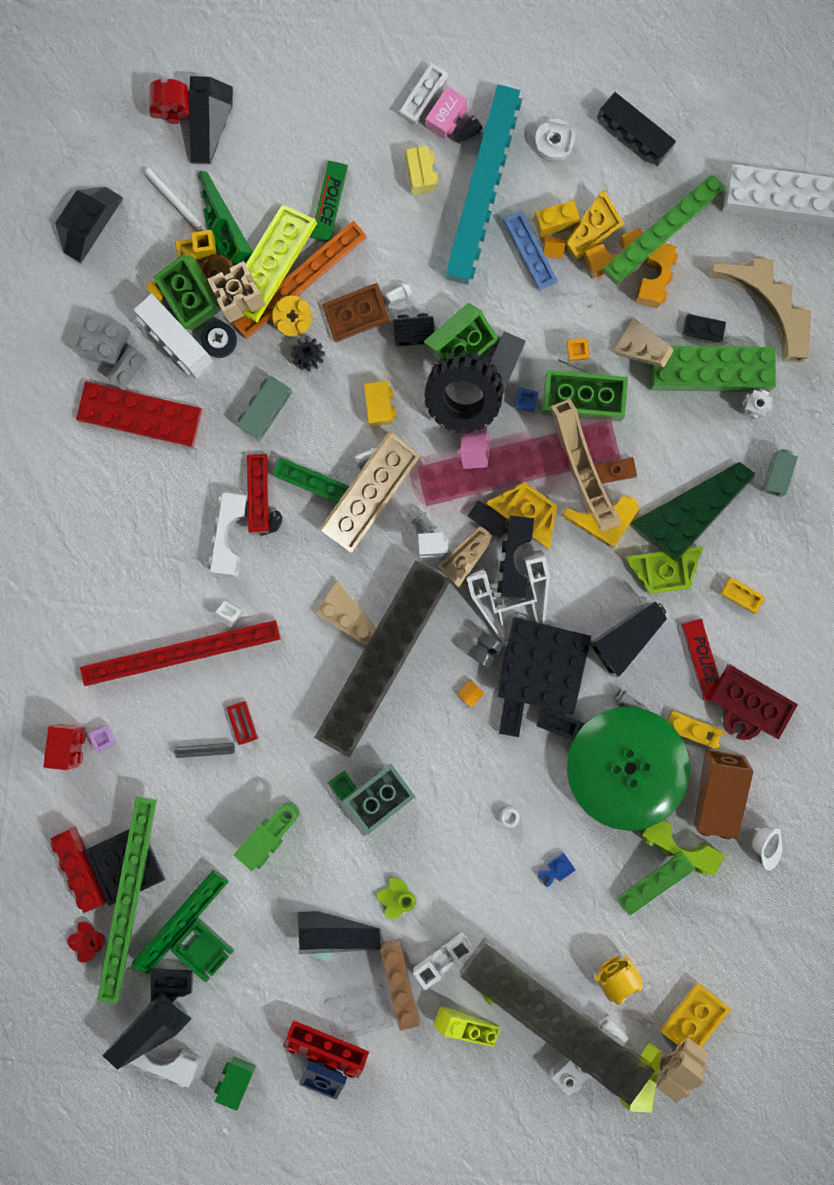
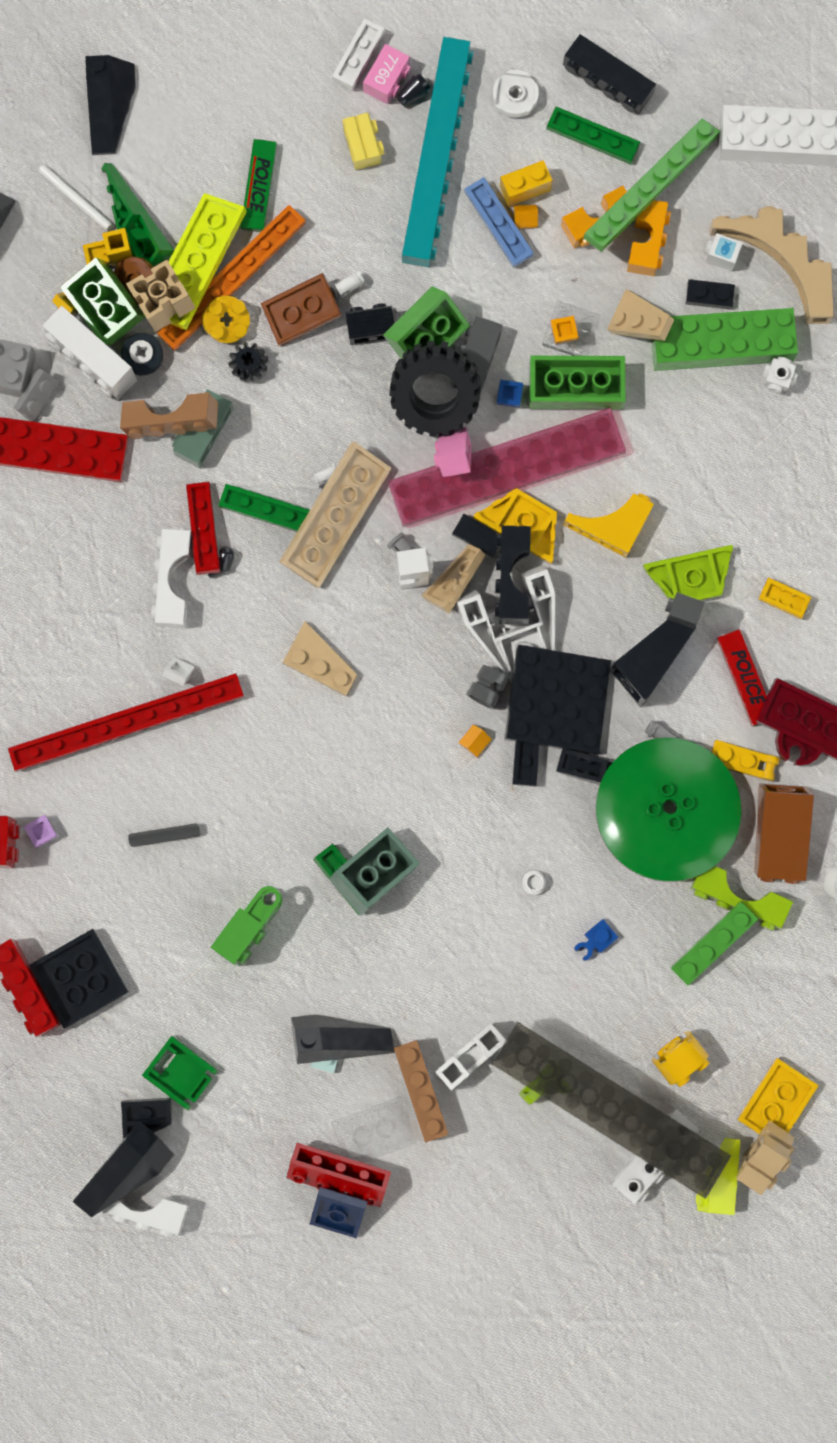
camera: 10 degrees left, 5 degrees down
(83, 942) = (35, 1075): red plate -> none
(127, 900) = (86, 1017): bright green plate -> none
(169, 100) = (63, 86): red brick -> none
(180, 922) = (151, 1040): green plate -> none
(234, 1084) = (232, 1227): green brick -> none
(249, 719) = (213, 818): red tile -> none
(258, 396) = (195, 414): none -> medium nougat arch
(378, 403) = (336, 411): yellow brick -> none
(382, 659) = (367, 706): clear smoke brick -> none
(393, 897) = (404, 990): lime plate -> none
(465, 1027) = (505, 1136): neon yellow slope -> none
(582, 467) = (580, 461): tan arch -> none
(595, 226) = (571, 188): yellow wing -> none
(616, 470) = (621, 467): dark orange plate -> none
(617, 181) = (593, 135): none -> green tile
(659, 604) = (684, 610): none -> dark grey brick
(686, 517) = (709, 513): dark green wing -> none
(719, 292) = (723, 251): none -> white brick
(779, 473) = (813, 452): sand green brick -> none

